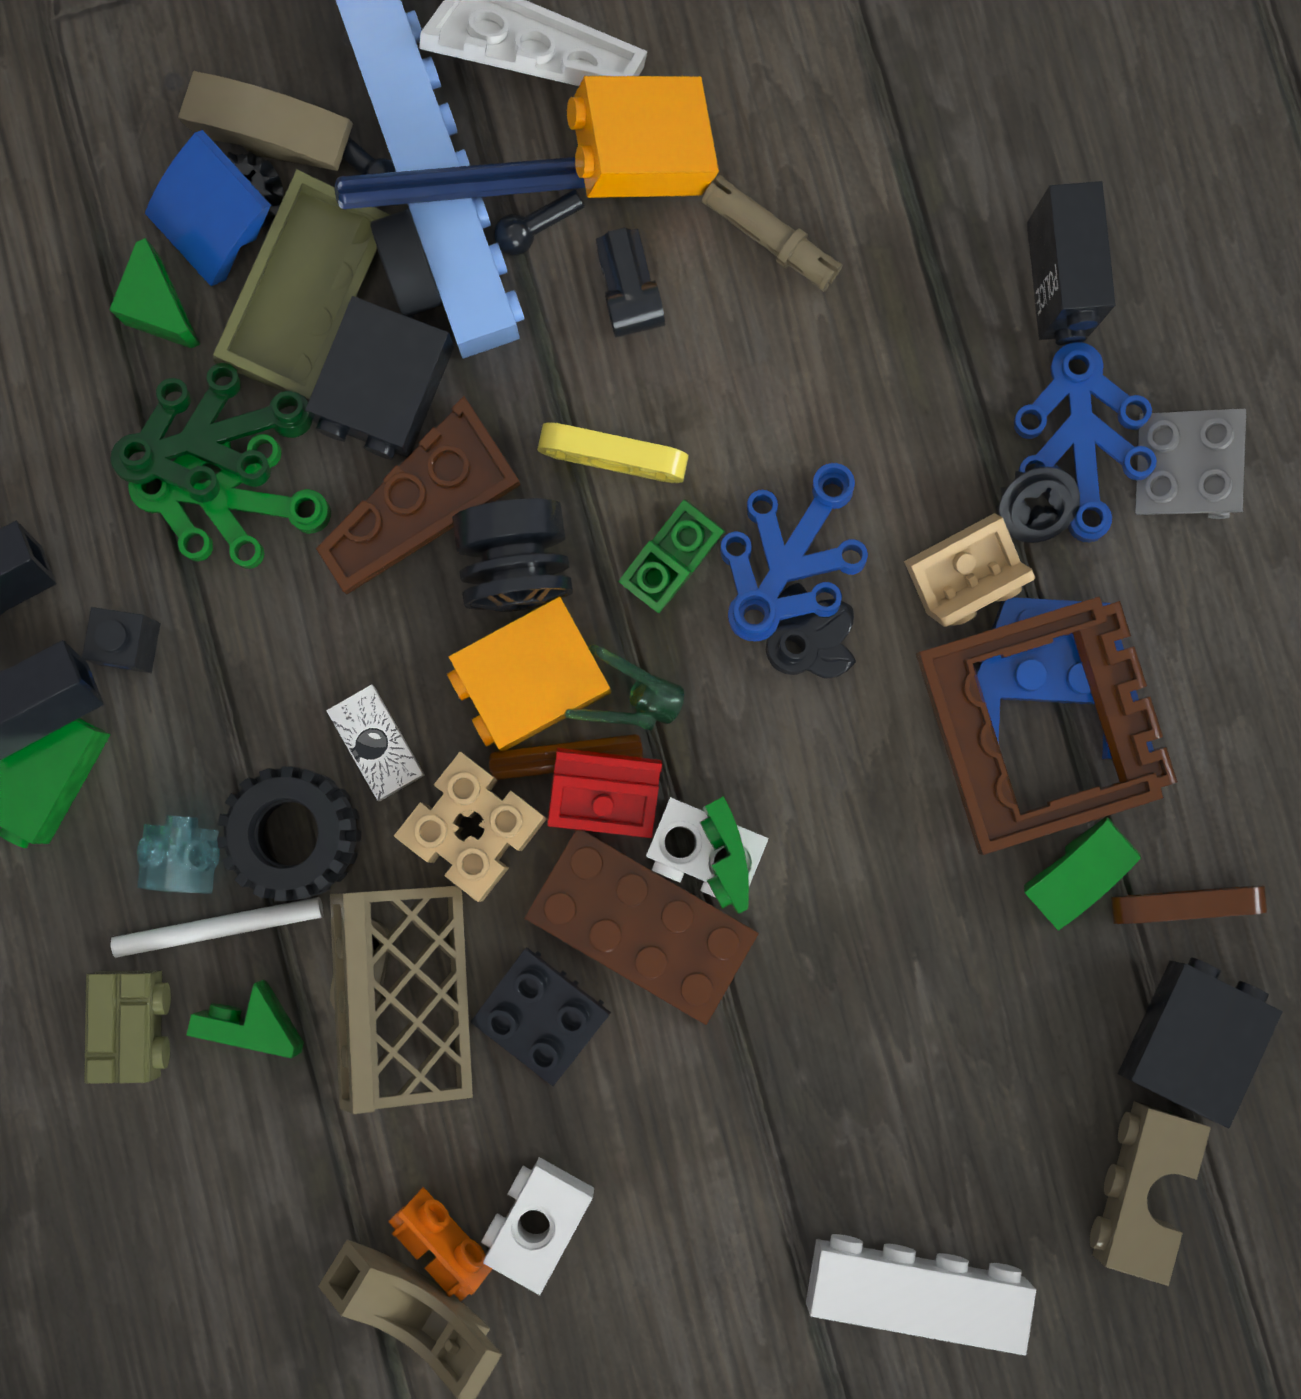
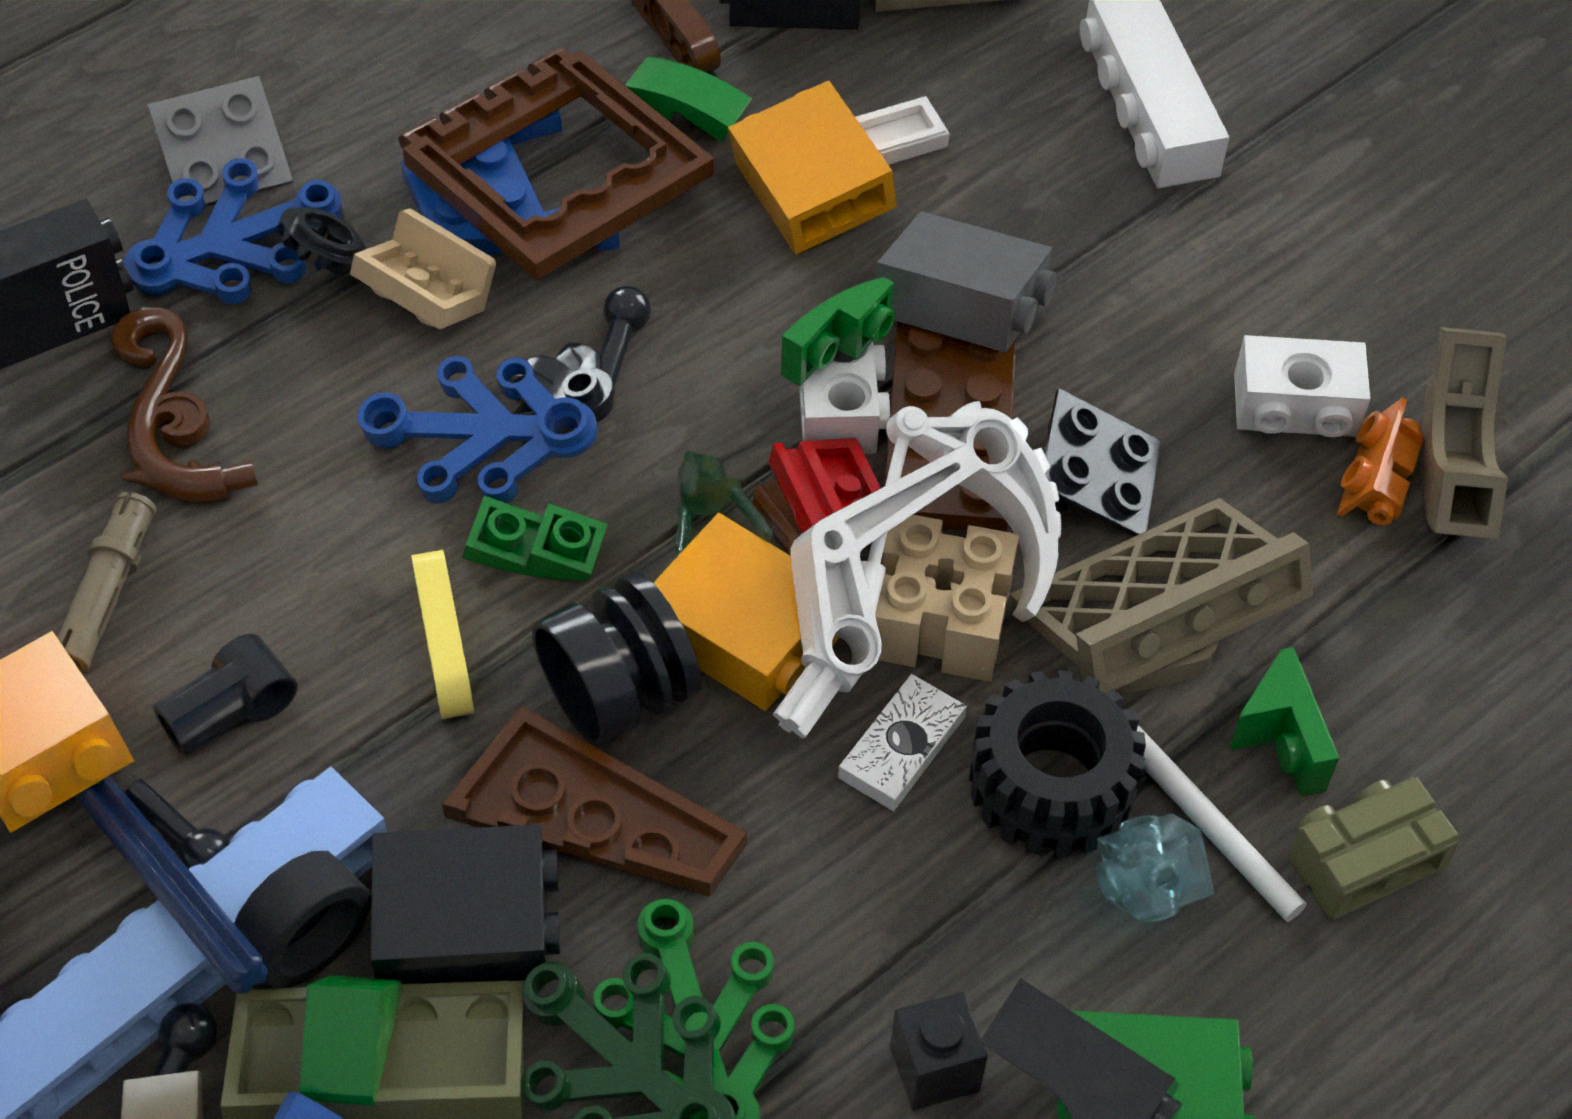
camera: 115 degrees left, 30 degrees down
(309, 265) = (347, 1038): none -> green slope
(509, 751) = (841, 592): none -> white piece
(756, 998) = (967, 280): none -> dark grey brick
(862, 718) = (625, 312): none -> black bar
(928, 321) = (182, 409): none -> reddish brown plant
(949, 938) = (812, 167): none -> light orange brick
(971, 1031) = (905, 130): none -> white tile

